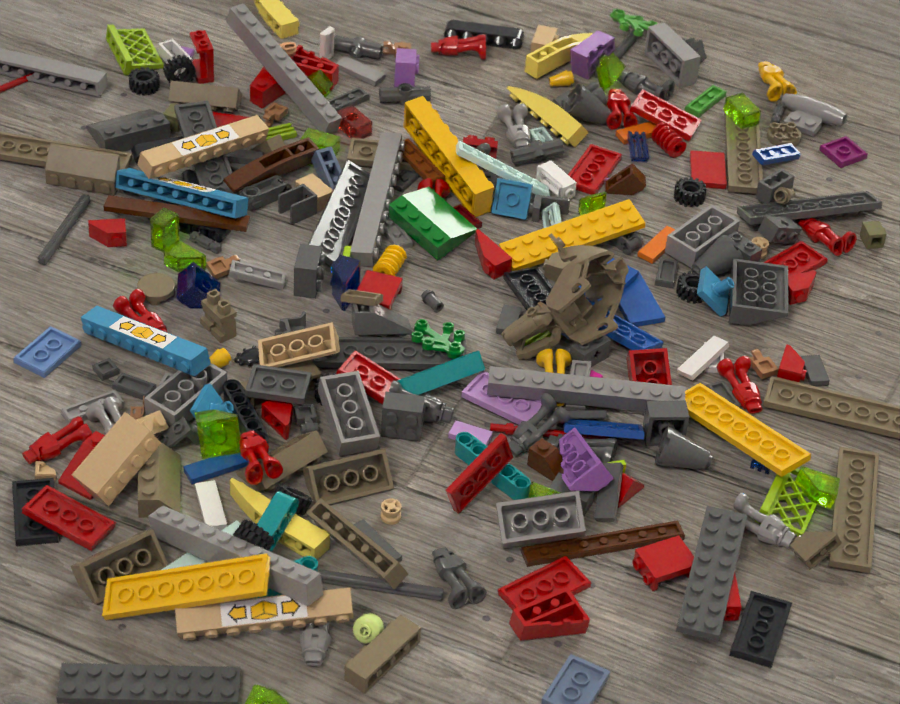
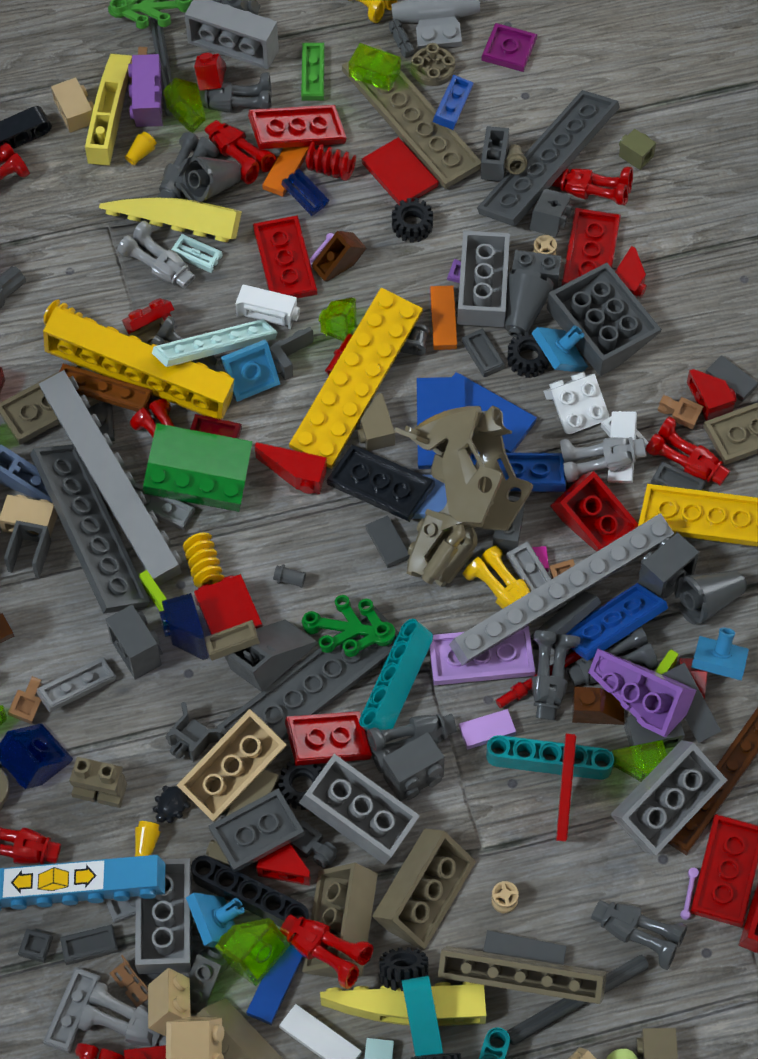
camera: 35 degrees left, 20 degrees up
(493, 590) = (692, 874): none -> lavender hinge
(537, 151) = (211, 278): dark grey piece -> none
(554, 215) = (317, 384): light aqua tile -> none
(639, 62) = (210, 71): none -> red slope
(653, 482) = (721, 655): none -> dark azure tile
(689, 353) = (616, 453): none -> light grey piece
(698, 323) = (578, 402): none -> white bracket

